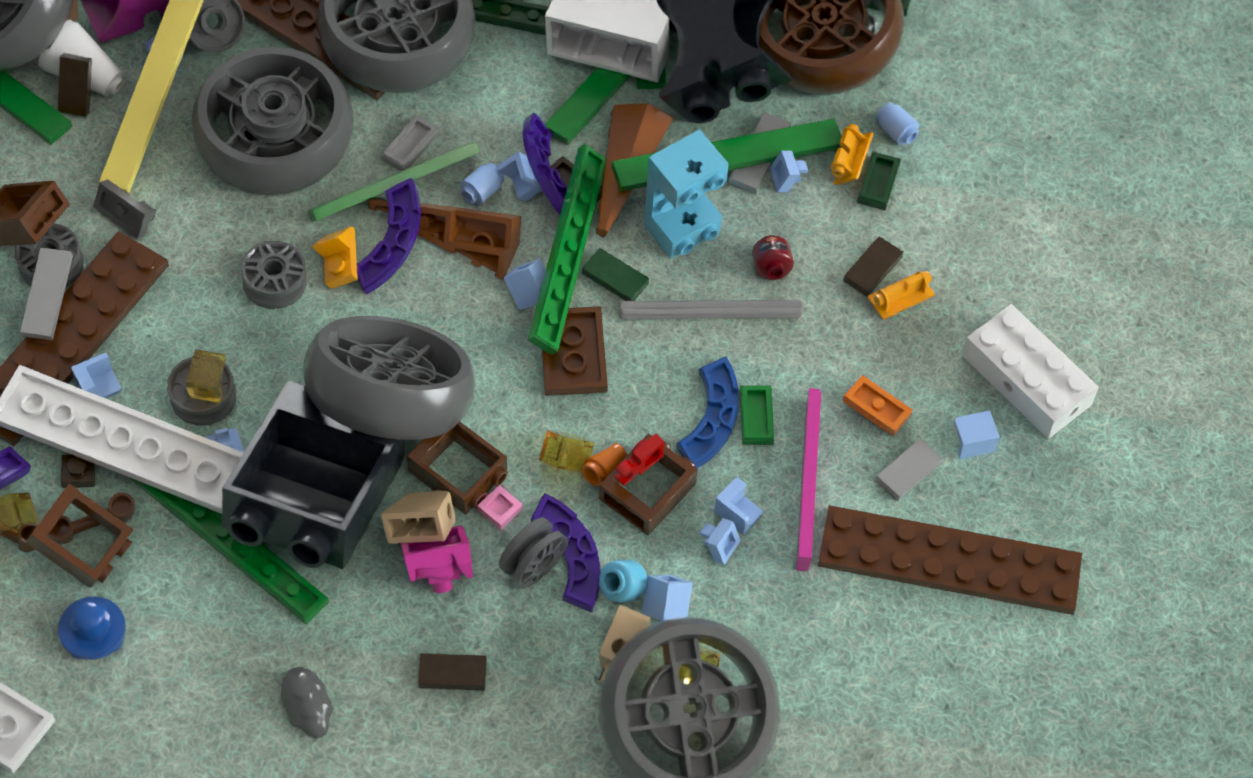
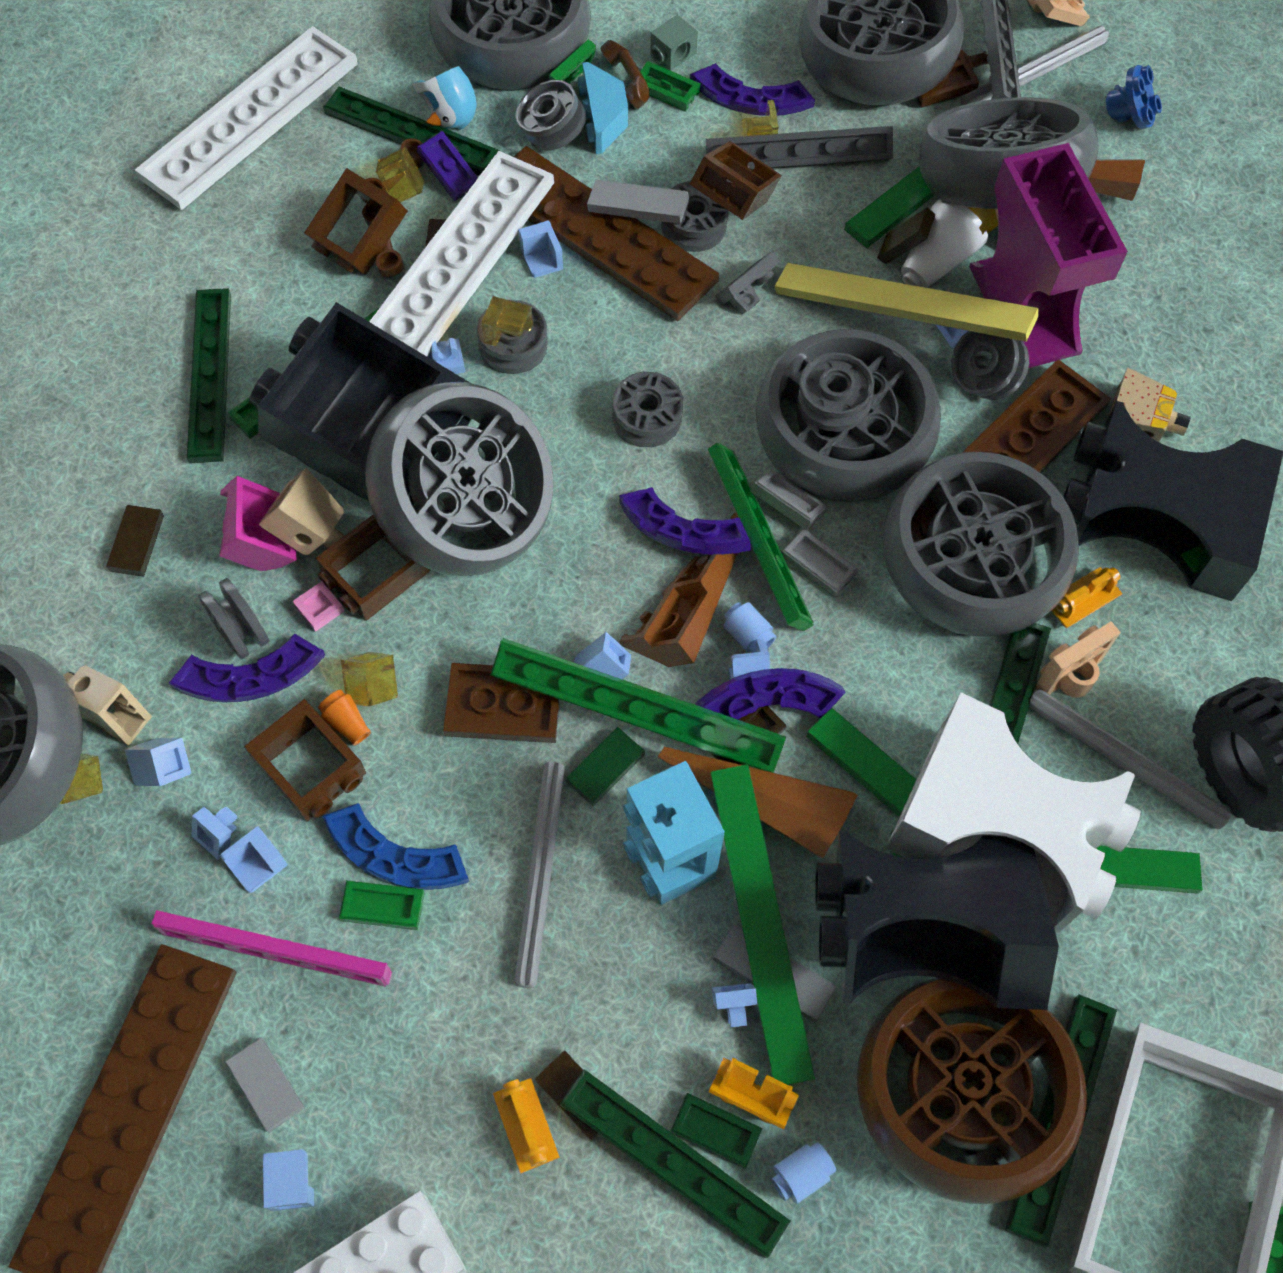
camera: 100 degrees right, 5 degrees up
(92, 628) = (267, 238): blue plate -> none
(259, 649) = (209, 376): none -> dark green tile
(306, 701) = (139, 407): dark grey arm -> none
(339, 257) = (674, 474): light orange slope -> none
(353, 165) = (789, 499): none -> light grey tile
(623, 580) = (183, 712): medium azure head -> none
(643, 457) = (318, 742): red plate -> none
(772, 255) = (599, 957): dark red head -> none
(877, 405) = (360, 1058): orange plate -> none
(906, 201) = (675, 1163): none -> dark green tile

